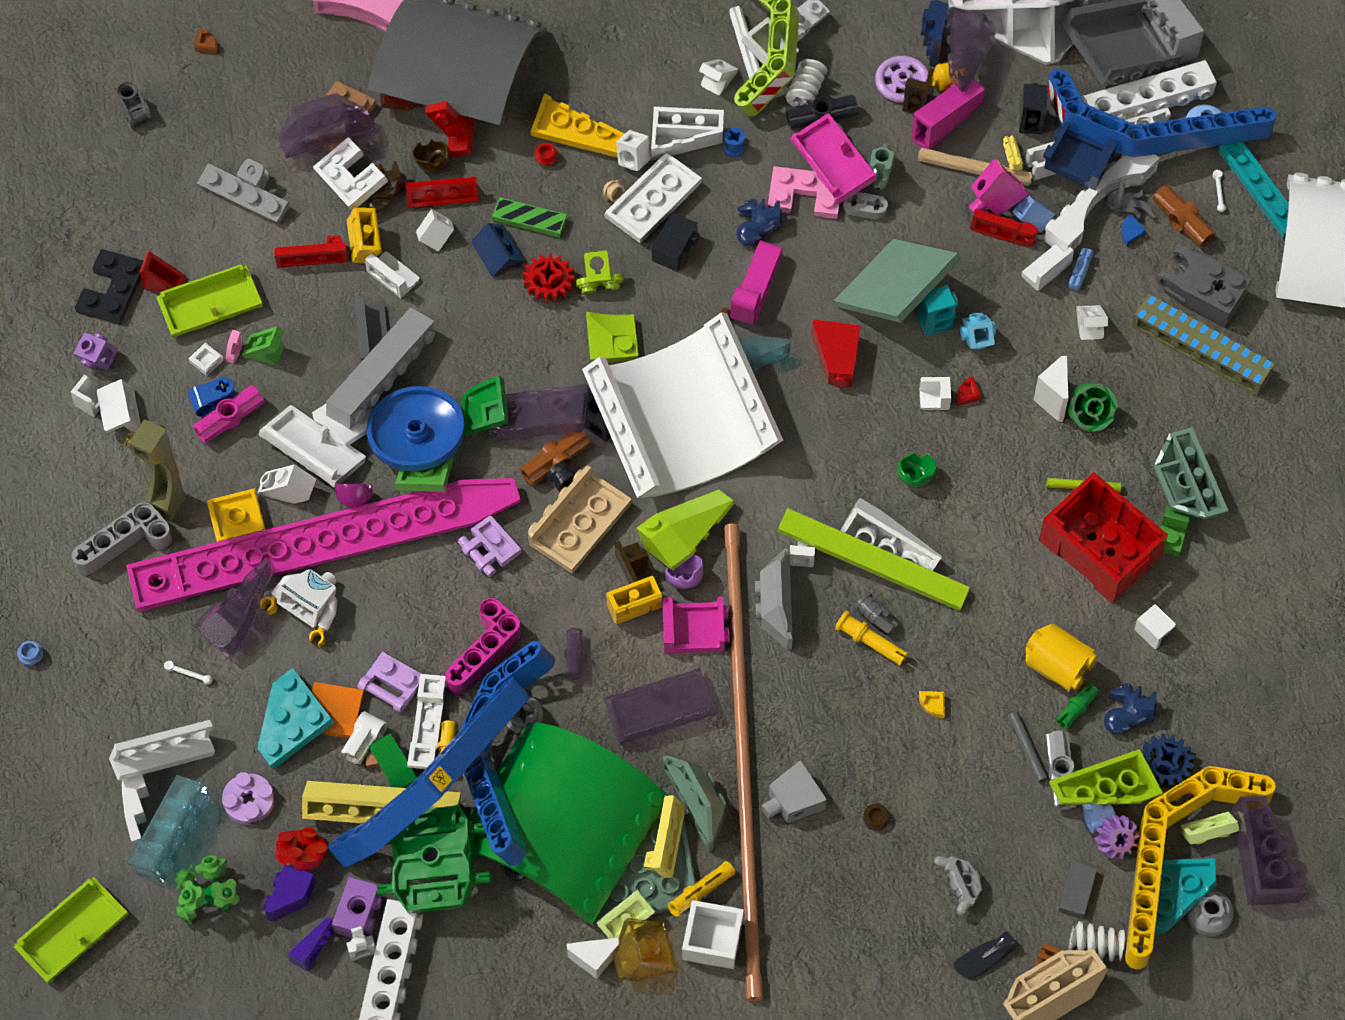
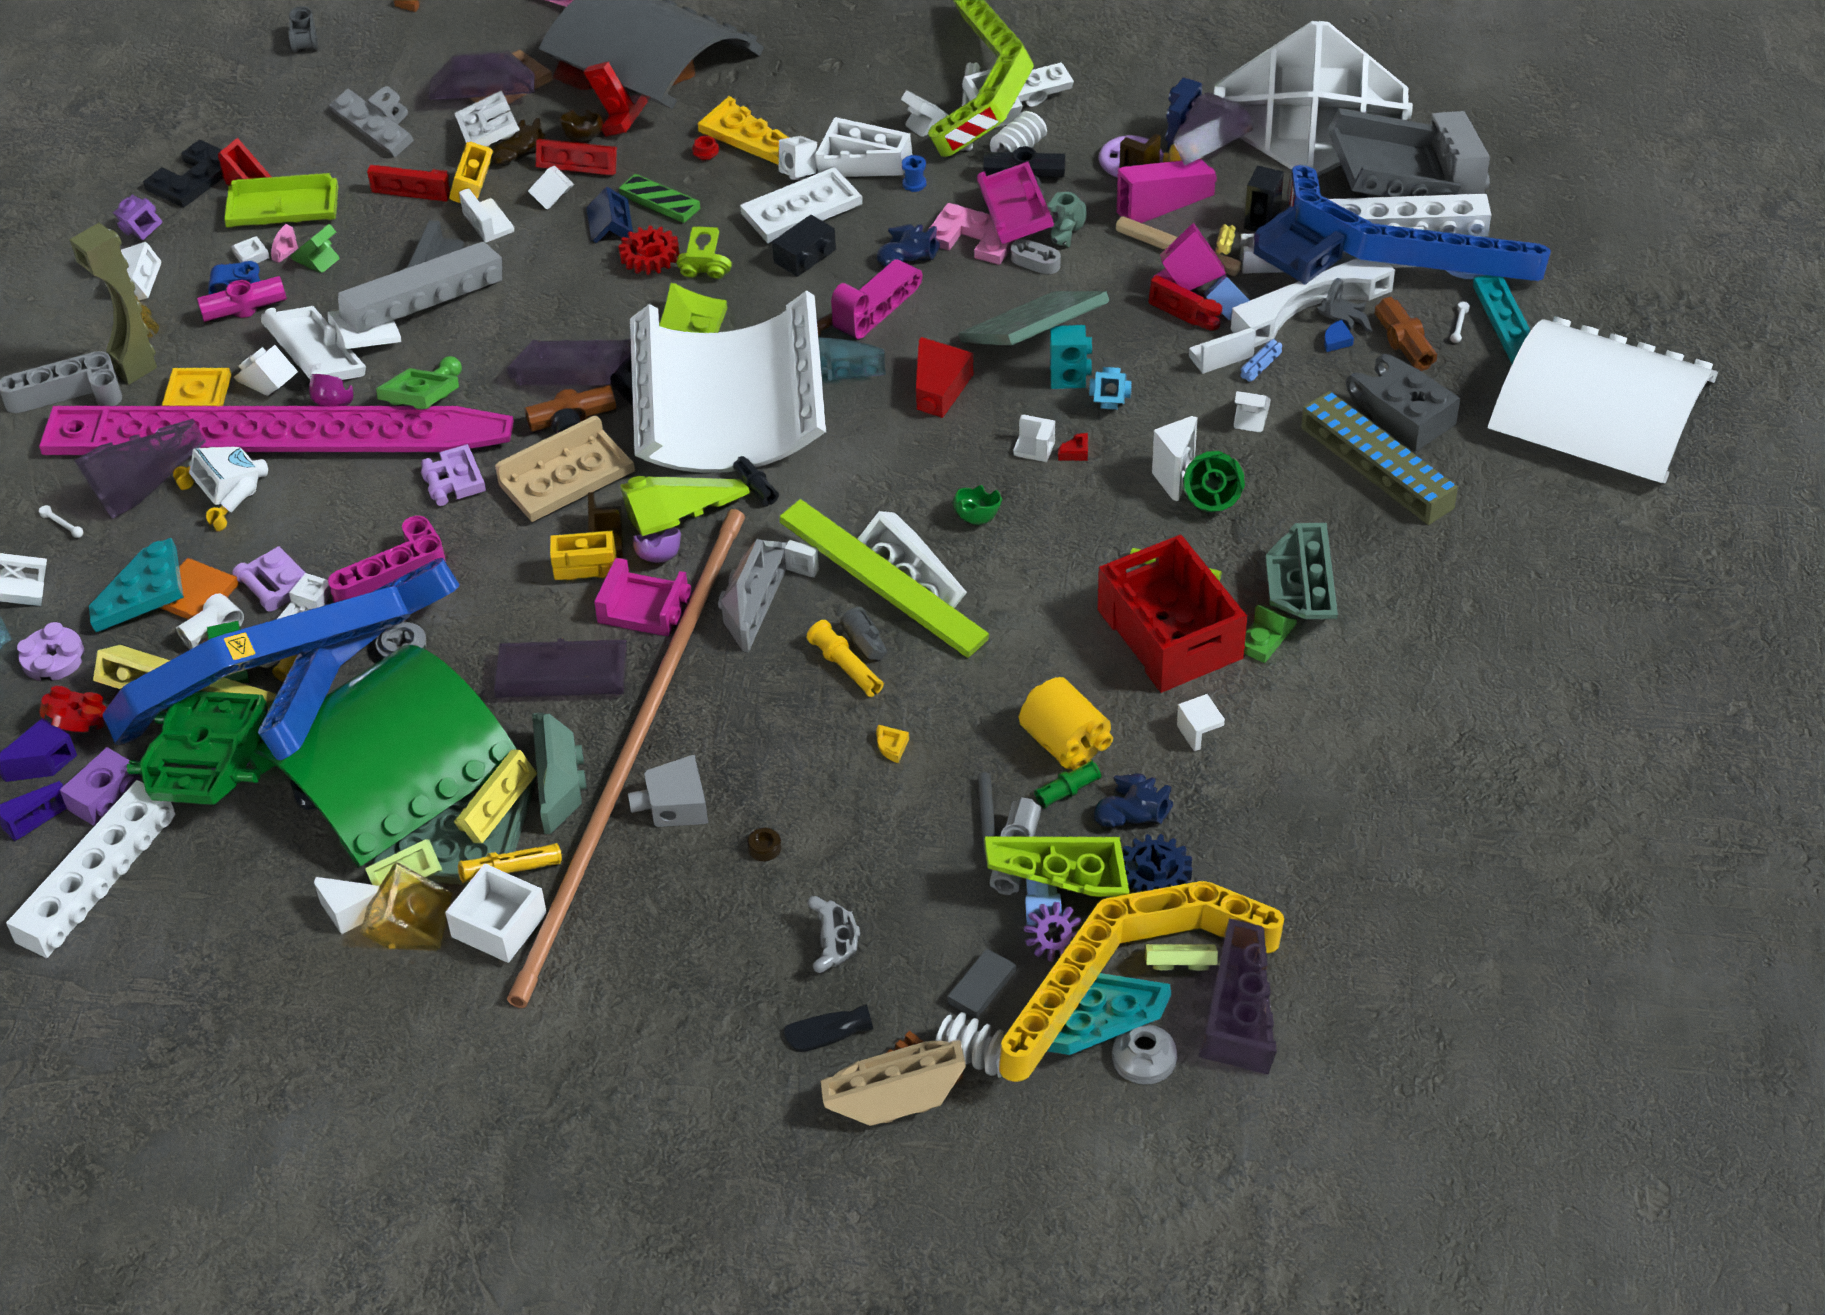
camera: 20 degrees right, 15 degrees down
(360, 945) = (77, 820): white plate -> none
(415, 428) = (427, 345): blue dish -> none
(485, 406) = (514, 344): green plate -> none
(574, 653) = (491, 596): clear purple pin -> none
(613, 190) = (760, 183): tan plate -> none
(733, 489) = (756, 481): none -> black axle

